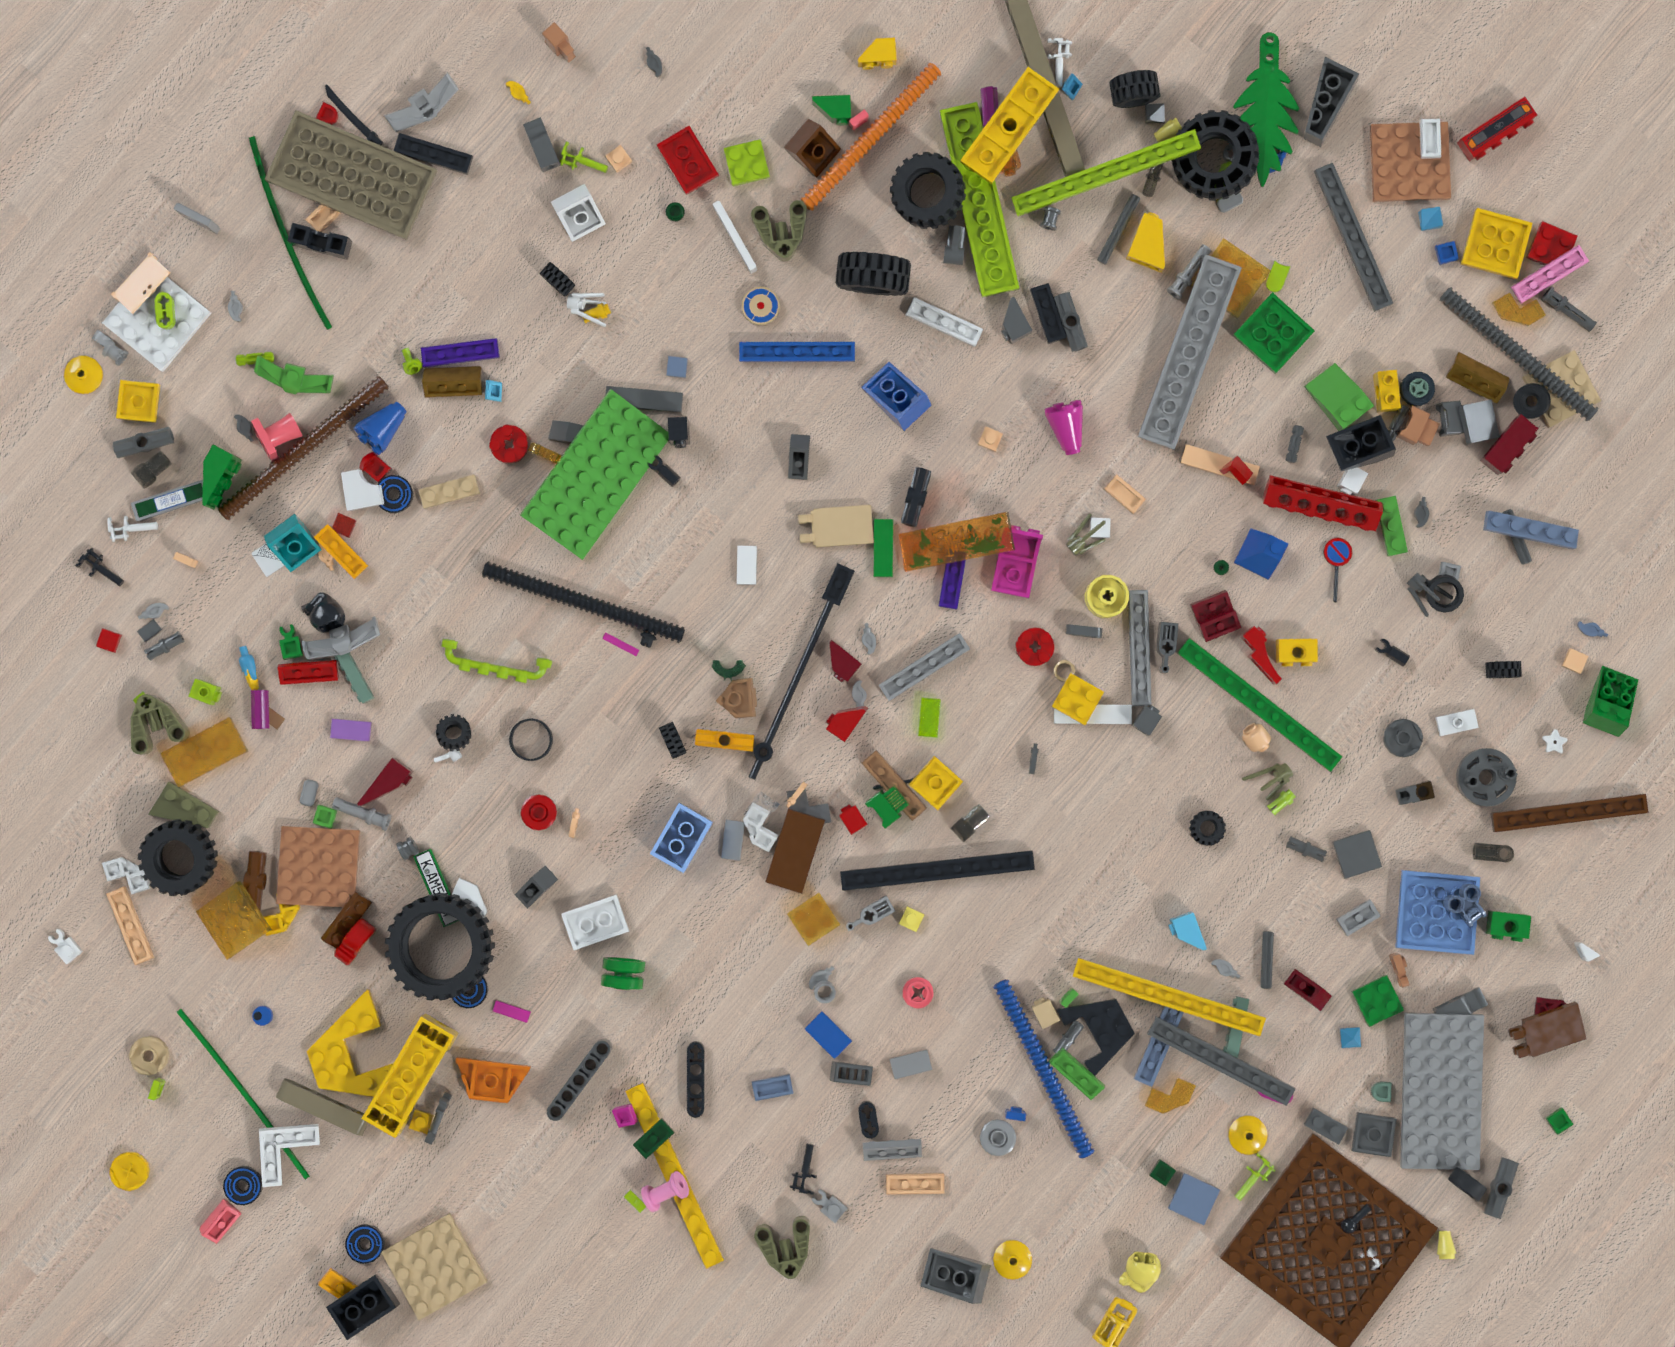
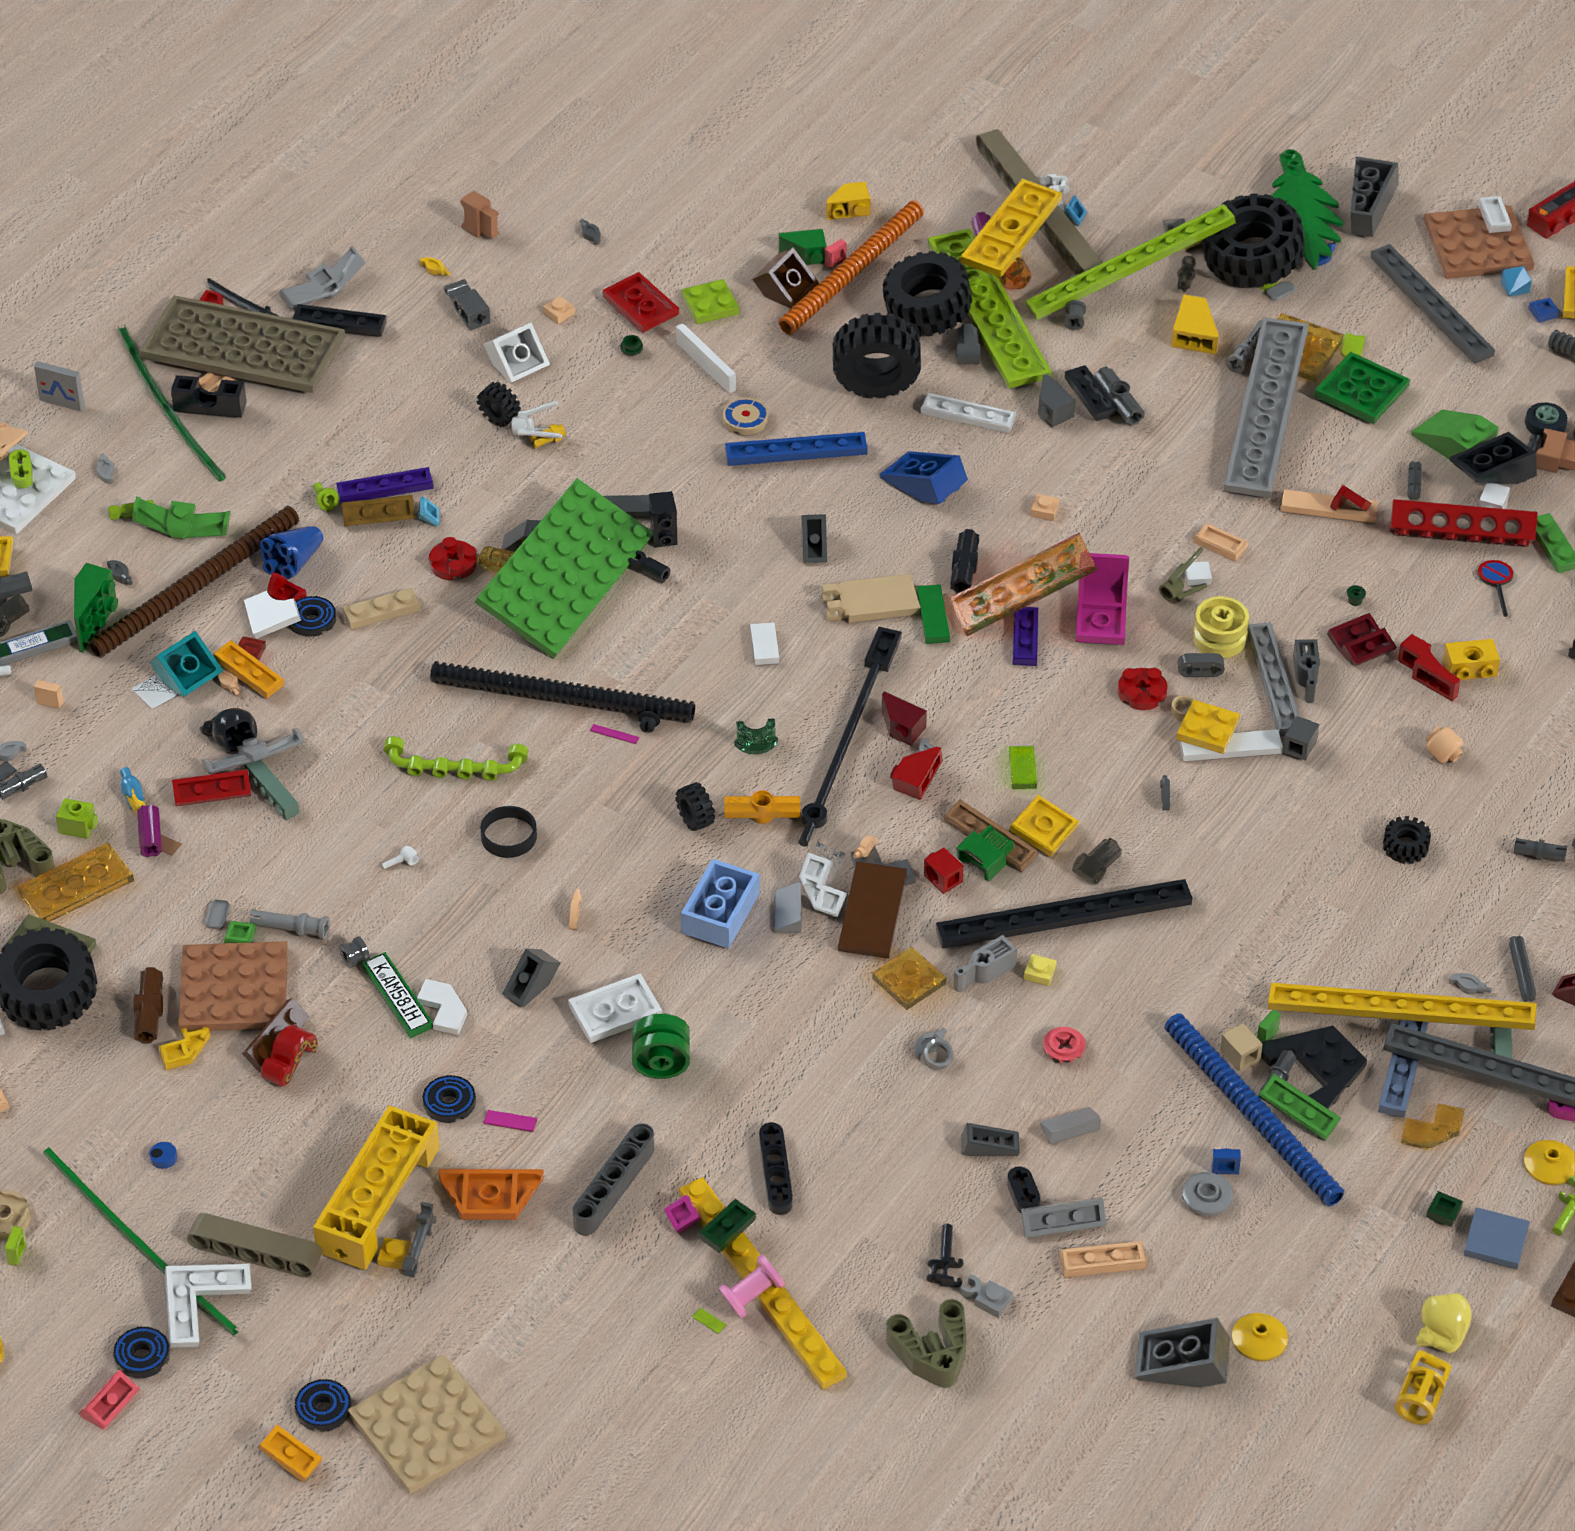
camera: 10 degrees left, 40 degrees down
(233, 920) = (121, 1045): clear yellow plate -> none
(276, 434) = (152, 567): coral plant -> none
(290, 645) = (186, 764): green plate -> none
(331, 1056) = (261, 1189): yellow wing -> none
(350, 730) = (270, 844): medium lavender tile -> none
(363, 1306) = (327, 1469): black slope -> none
(390, 779) = (322, 887): dark red slope -> none
(402, 961) = (414, 1082): black tyre -> none
(453, 721) = (407, 827): black tyre -> none
(538, 812) = (526, 904): red wheel -> none
(582, 160) = (513, 312): lime piece -> none
(677, 367) = (651, 475): sand blue tile -> none
(739, 698) = (774, 765): medium nougat plate -> none
(772, 1087) = (884, 1168): sand blue tile -> none
(797, 225) = (763, 361): olive connector -> none
(828, 1034) = (950, 1099): blue piece -> none
(869, 639) = (931, 700): light grey piece -> none
(924, 667) = (1006, 716): light grey plate -> none
(1067, 425) = (1134, 477): dark pink cone -> none
(1118, 229) = (1157, 320): dark grey axle -> none
(1134, 89) = (1147, 196): black tyre -> none
(1187, 929) = (1410, 944): medium azure slope -> none
(1259, 705) = (1438, 714): green plate -> none
(1261, 553) = (1403, 576): blue slope -> none
(1281, 774) = (1486, 779): olive plant -> none
(1285, 798) = (1498, 802): lime animal -> none
(1386, 391) = (1510, 417): yellow brick -> none

